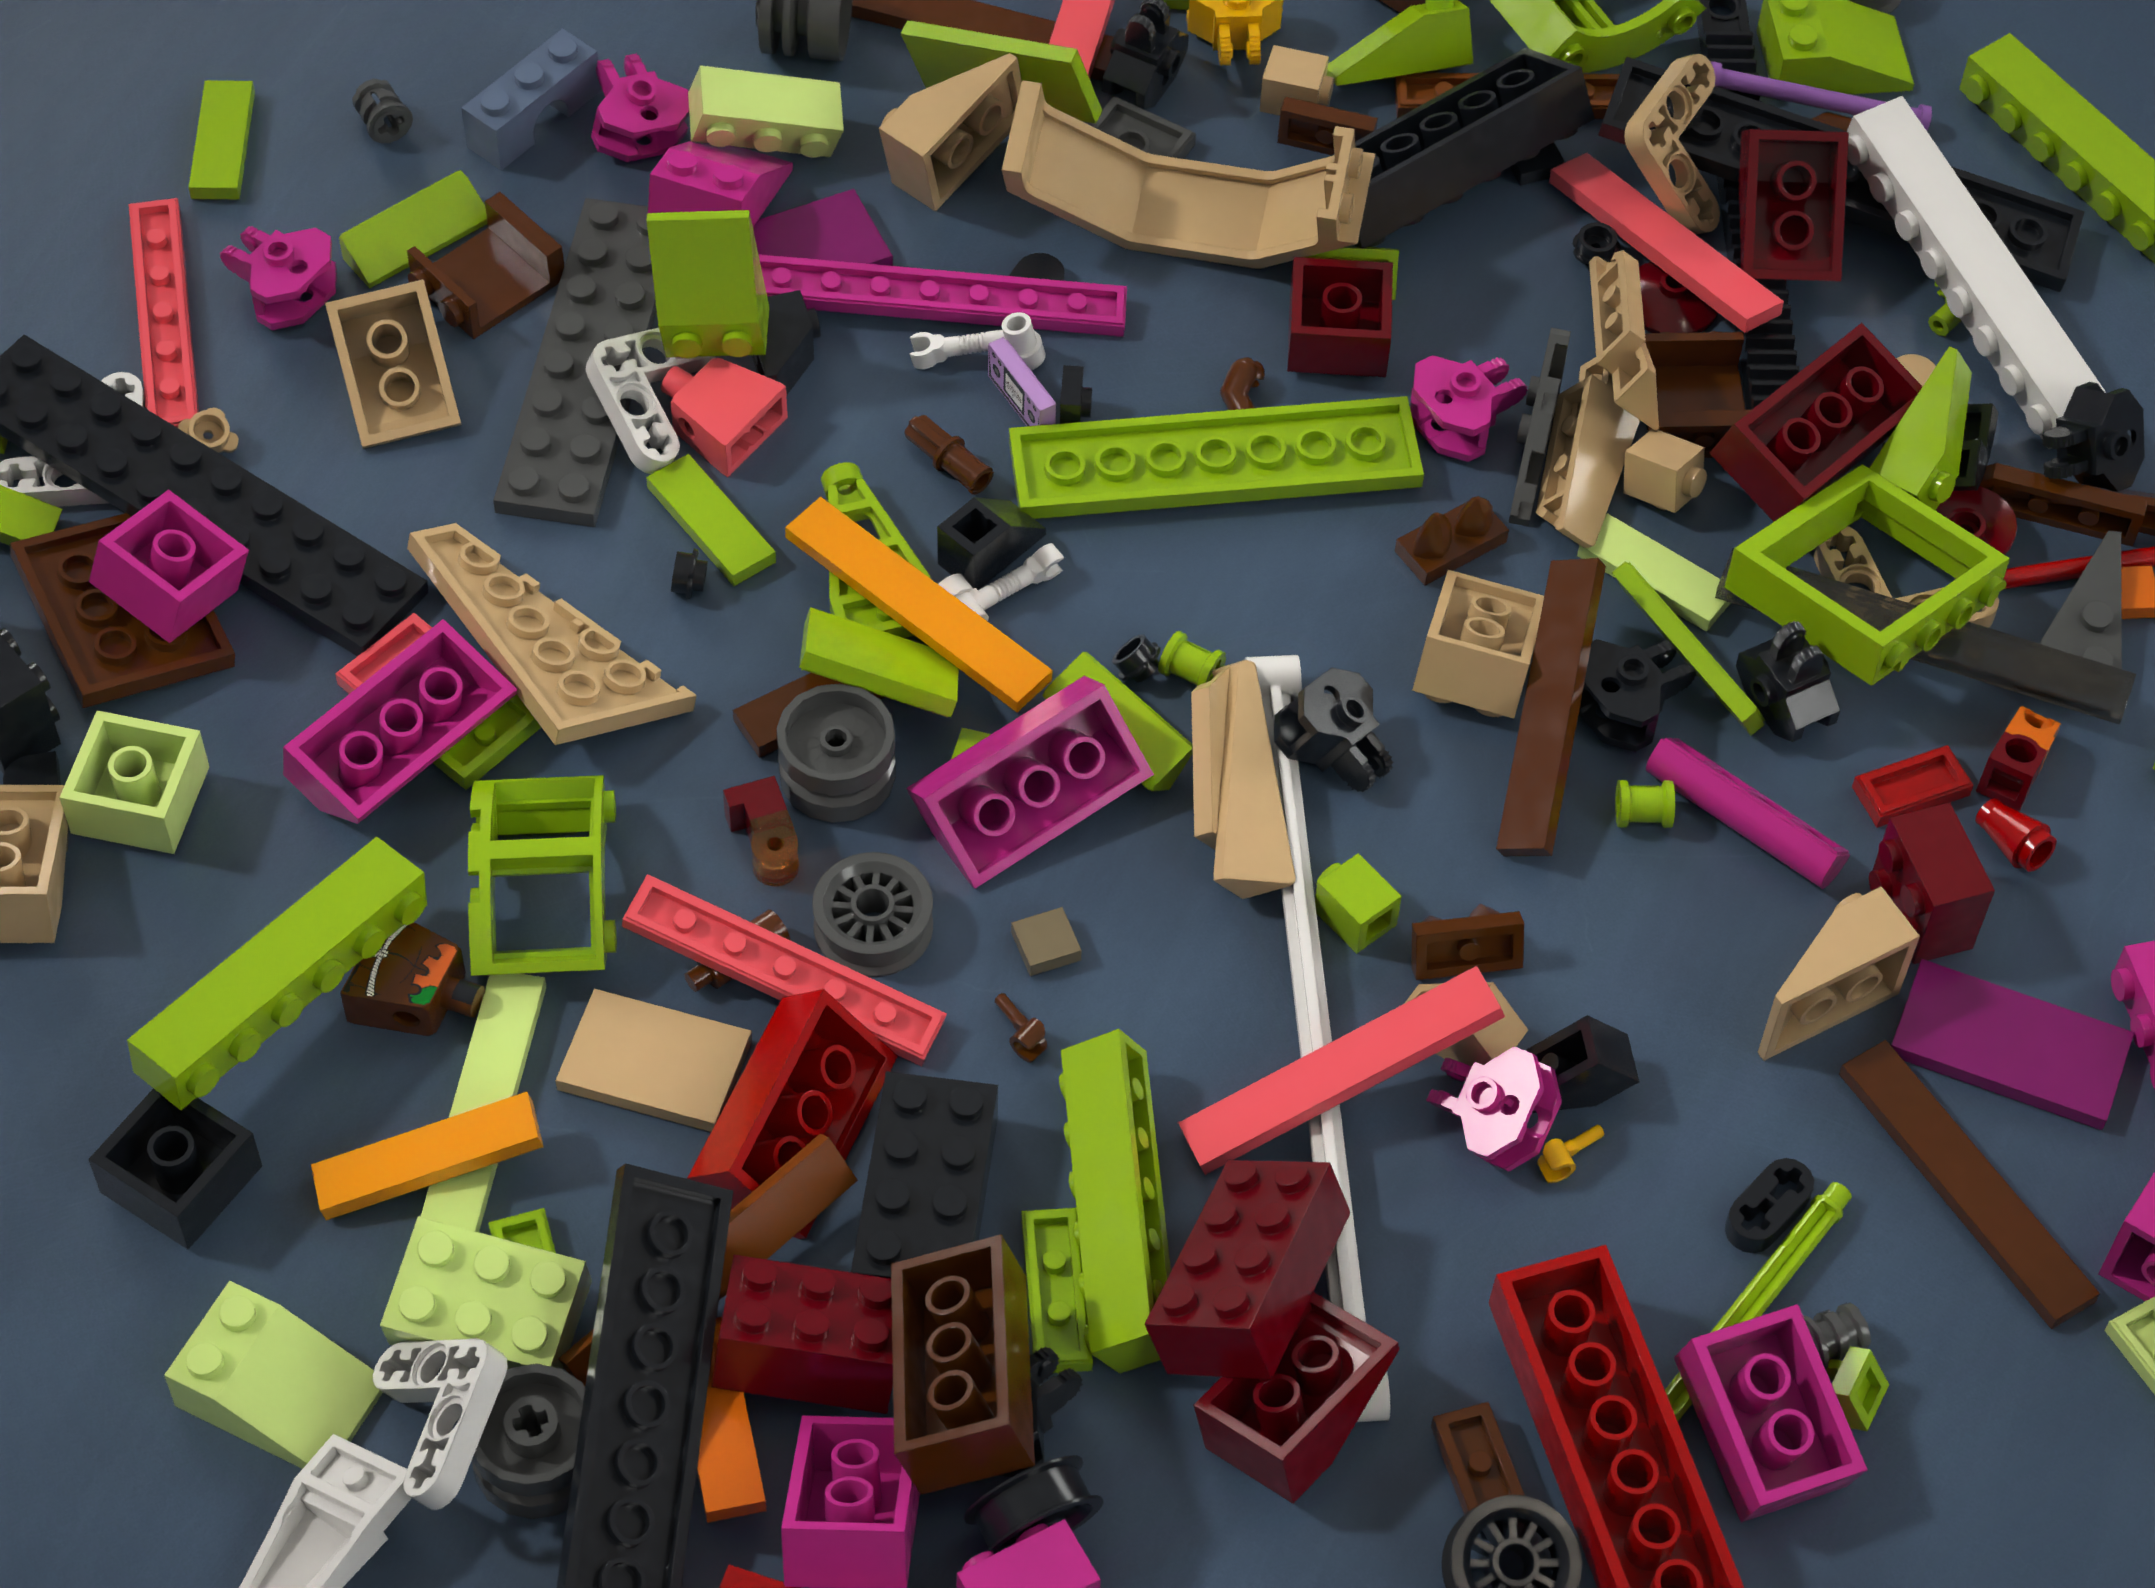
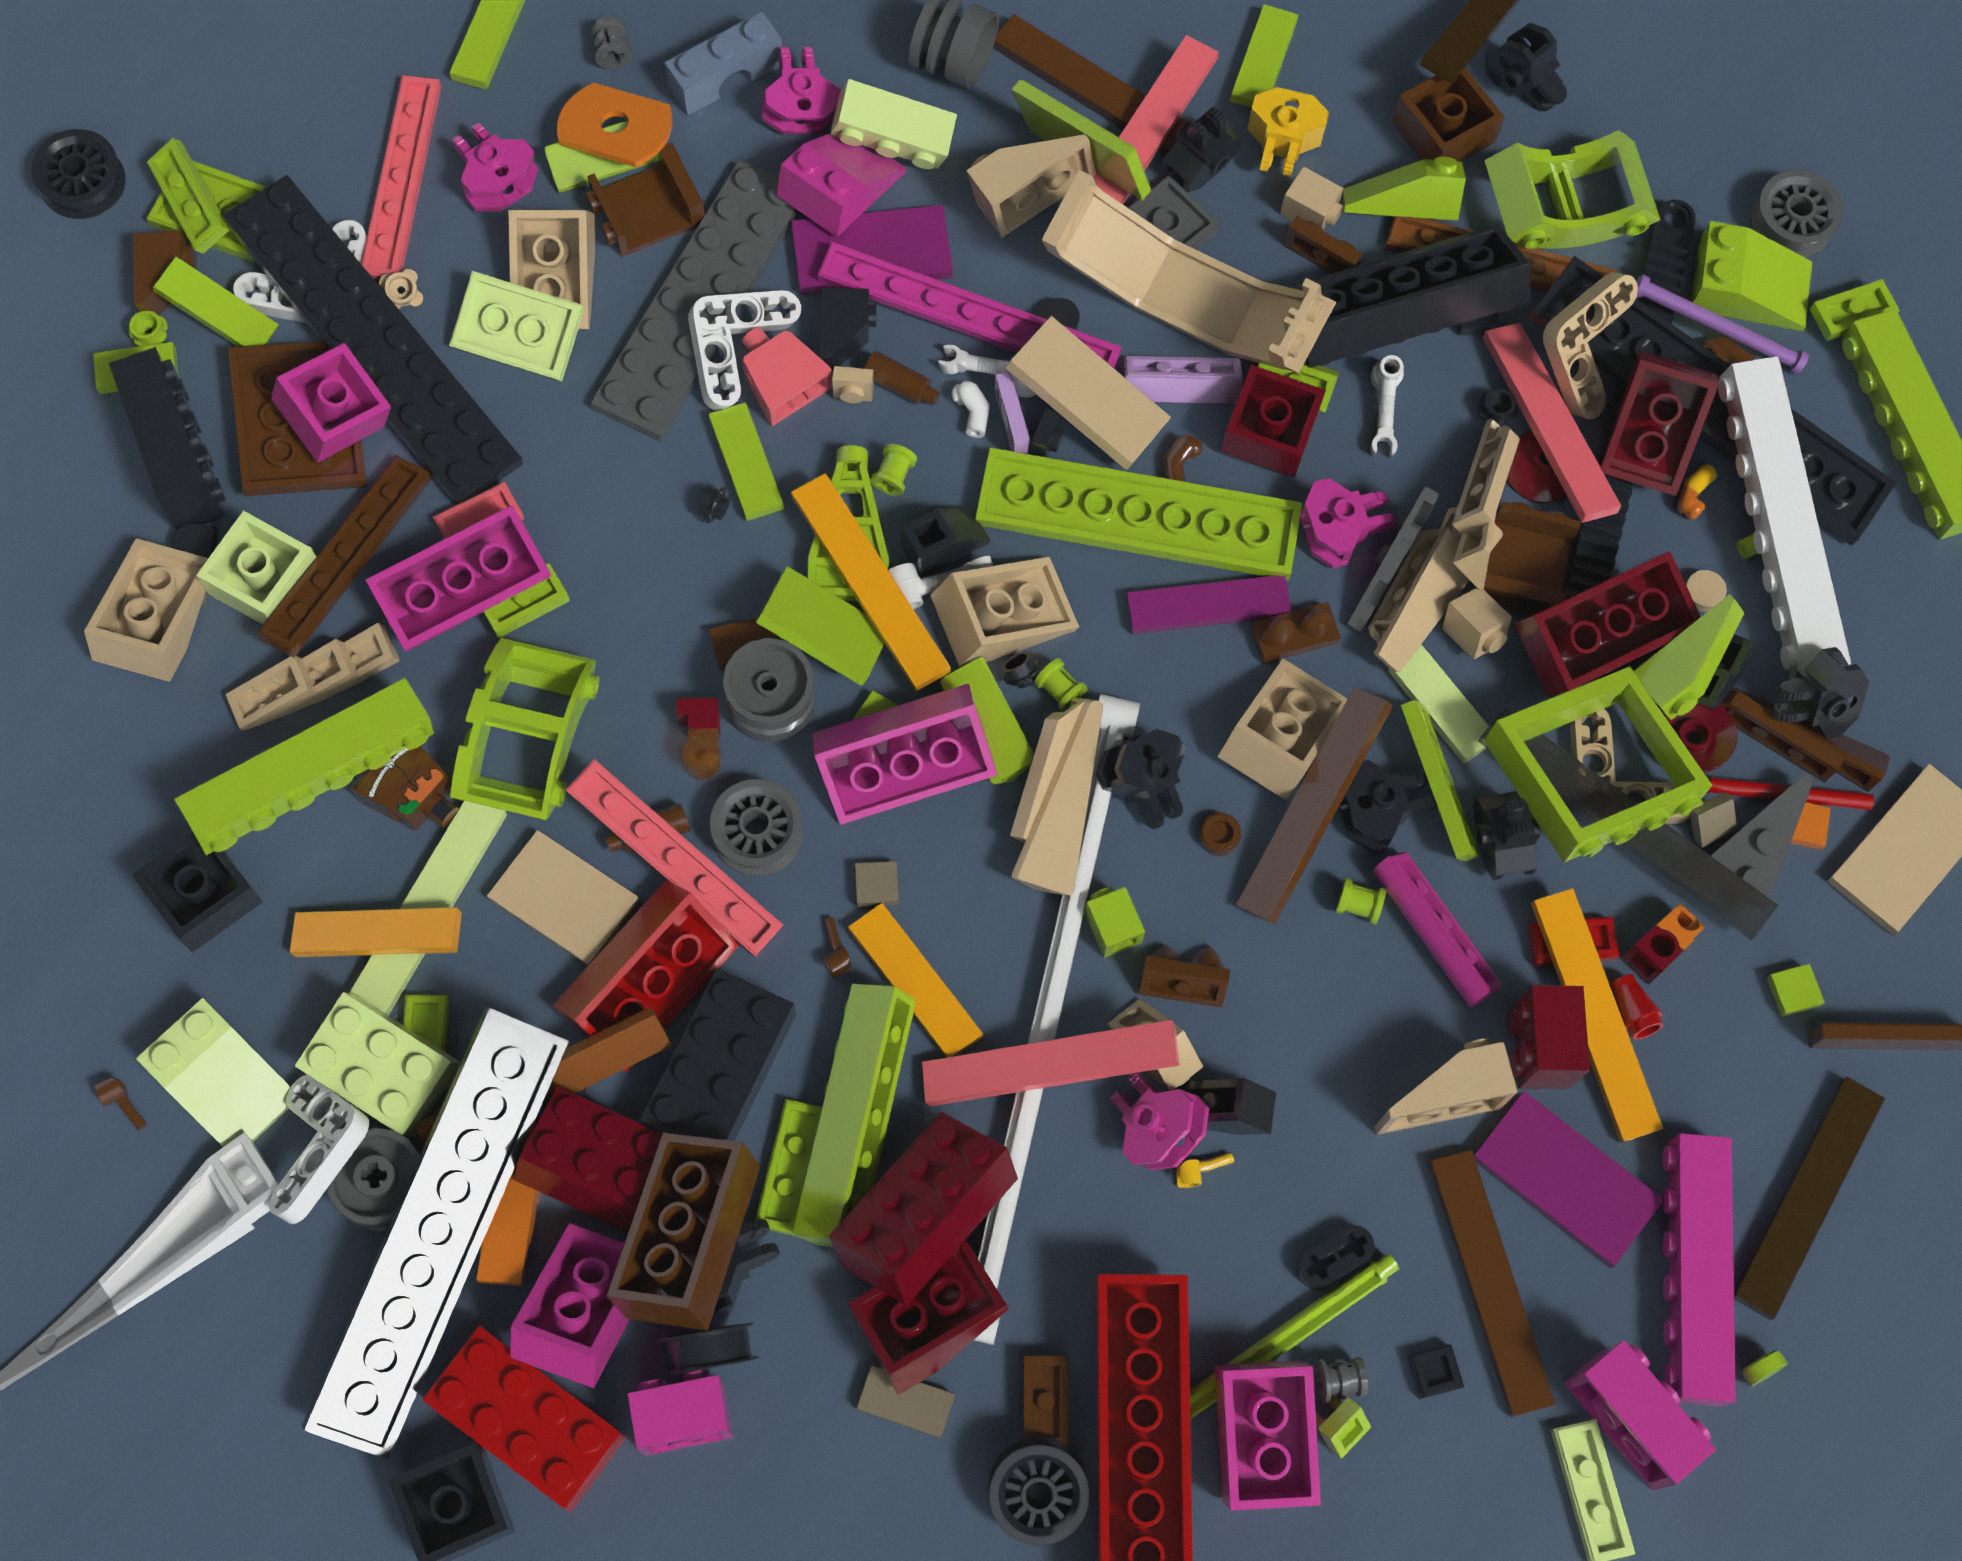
camera: 15 degrees right, 15 degrees up
(136, 1438) = (115, 1090): none -> reddish brown hand
(238, 742) = (344, 556): none -> reddish brown tile
(244, 891) = (310, 679): none -> tan slope
(371, 437) = (517, 326): none -> yellowish green tile
(462, 192) = (640, 141): none -> orange piece
(553, 654) = (588, 541): tan wing -> none
(708, 284) = (789, 279): lime slope -> none
(815, 401) = (853, 384): none -> tan plate
(870, 384) = (901, 379): none -> reddish brown cylinder
(899, 481) = (893, 469): none -> lime bush
(949, 454) = (939, 455): reddish brown axle -> none
(976, 392) = (971, 396): none -> white arm
(1088, 598) = (1002, 609): none -> tan slope
(1108, 338) = (1088, 392): none -> tan tile
(1173, 1058) = (910, 972): none -> light orange tile
(1212, 307) = (1185, 378): none -> lavender slope
(1316, 1521) = (917, 1408): none -> dark tan tile
(1332, 535) = (1207, 604): none -> magenta tile
(1446, 779) = (1220, 834): none -> reddish brown tile
(1453, 247) = (1387, 385): none -> white brick
(1854, 276) = (1692, 488): none -> arm
(1941, 1301) = (1435, 1371): none -> black tile
(1946, 56) = (1839, 311): none -> lime plate
(2018, 901) = (1608, 1041): none -> light orange tile
(2023, 608) = (1713, 820): none -> dark tan tile

